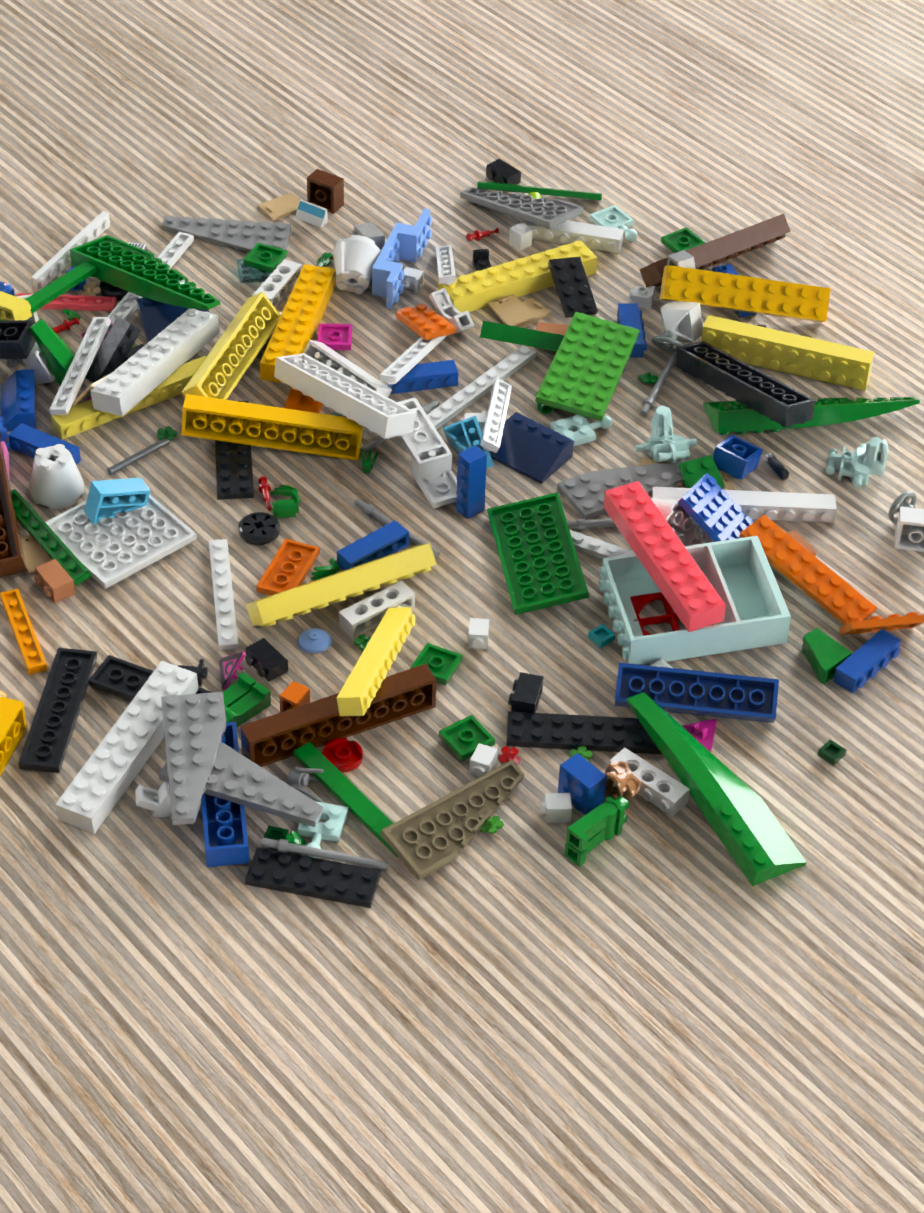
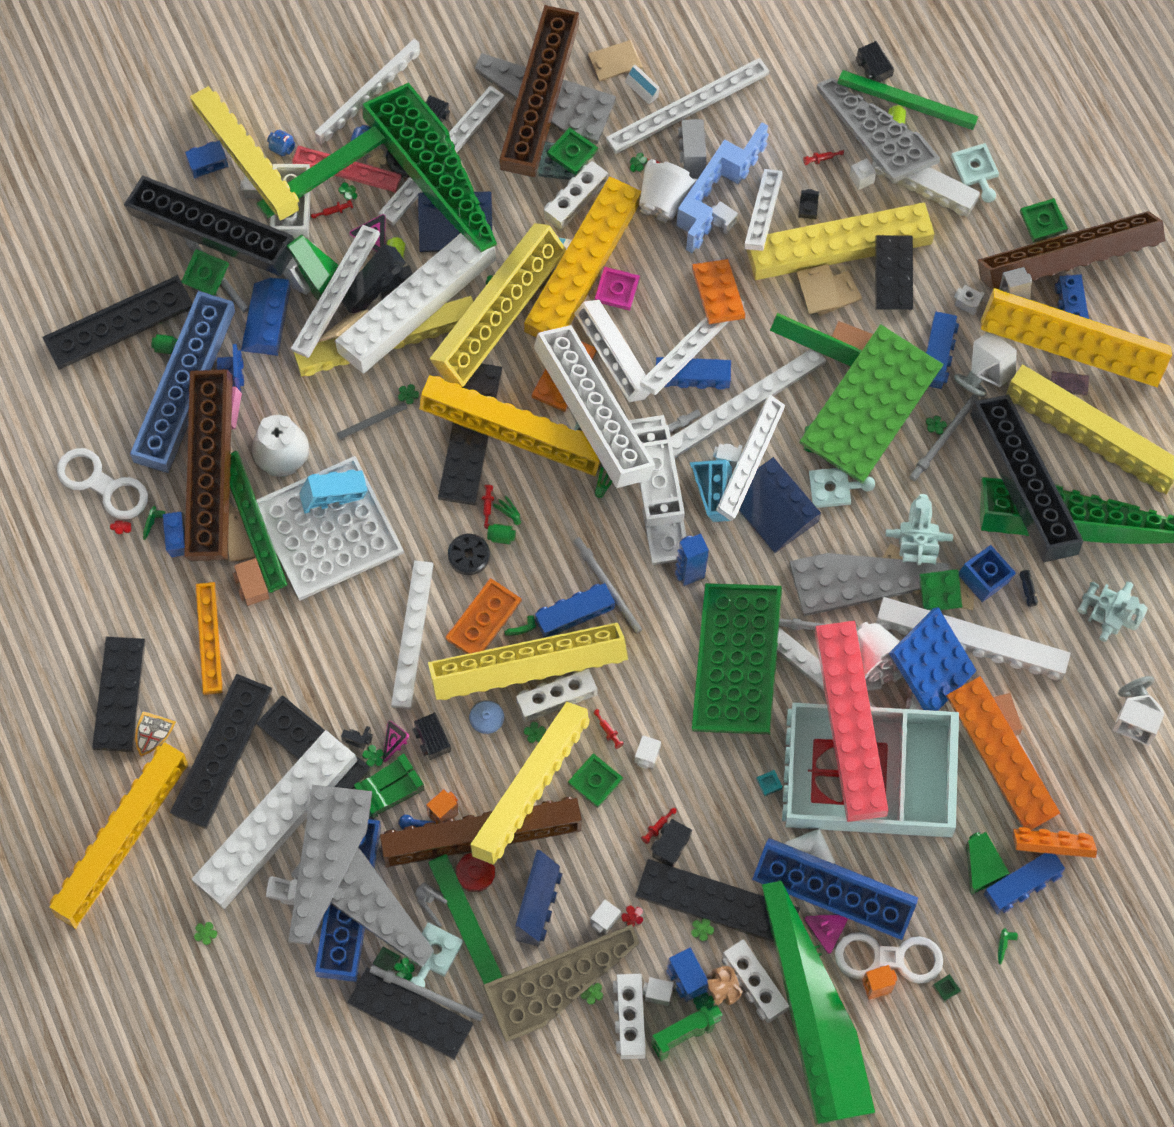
camera: 15 degrees right, 25 degrees up
(28, 440) = (278, 390): blue brick -> none
(80, 855) = (205, 933): none -> bright green plant
(213, 686) = (373, 756): none -> green plant
(224, 223) = (539, 91): none -> reddish brown brick
(325, 190) = (665, 56): reddish brown brick -> none
(347, 224) = (687, 106): none -> white plate
(414, 756) = (537, 900): none -> dark blue slope
(438, 628) = (611, 735): none -> red piece
(447, 310) = (748, 284): white arch -> none
(465, 736) = (598, 882): green plate -> none
(505, 690) = (654, 830): none -> red piece
(537, 833) = (633, 984): none -> white brick
(767, 741) = (889, 956): none -> white bar
(767, 754) = (879, 982): none -> orange brick
(868, 707) = (1003, 943): none -> green bar

